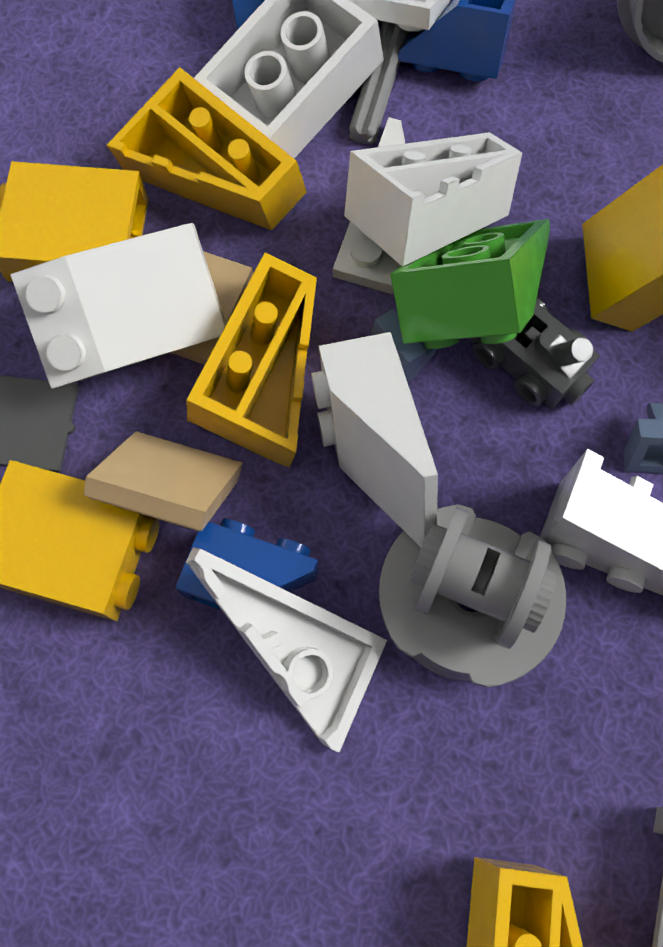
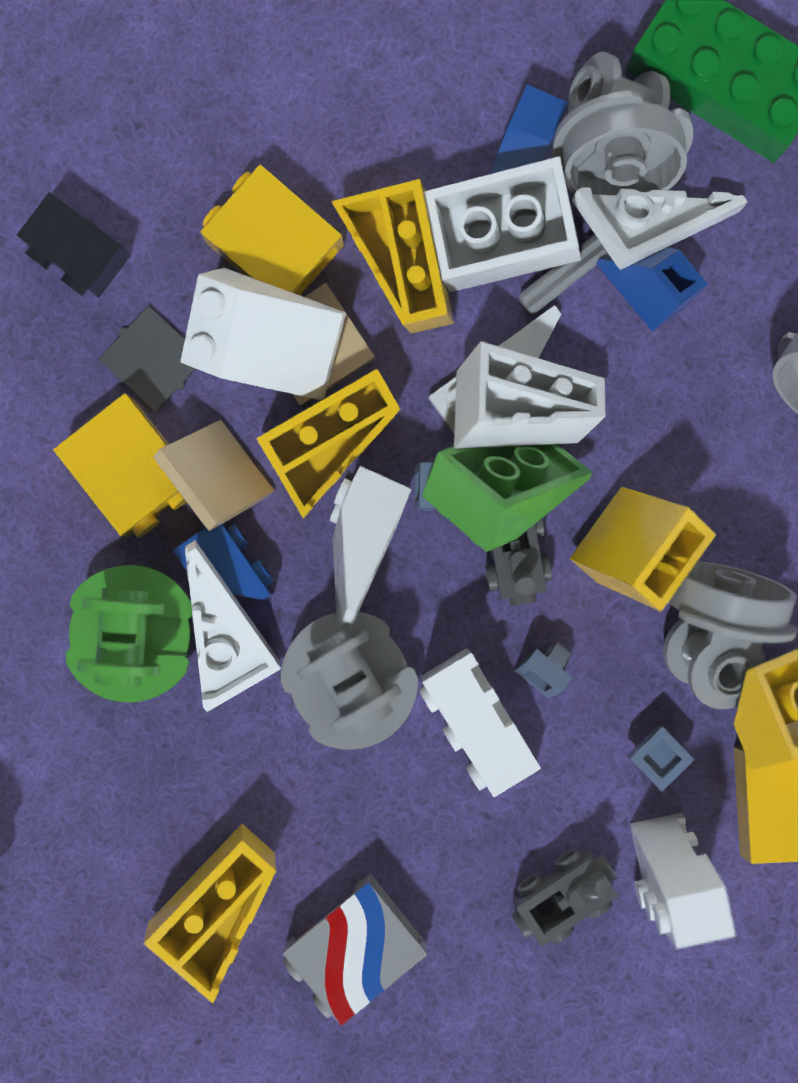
camera: 35 degrees right, 15 degrees up
(187, 723) = (129, 633): none -> bright green piece

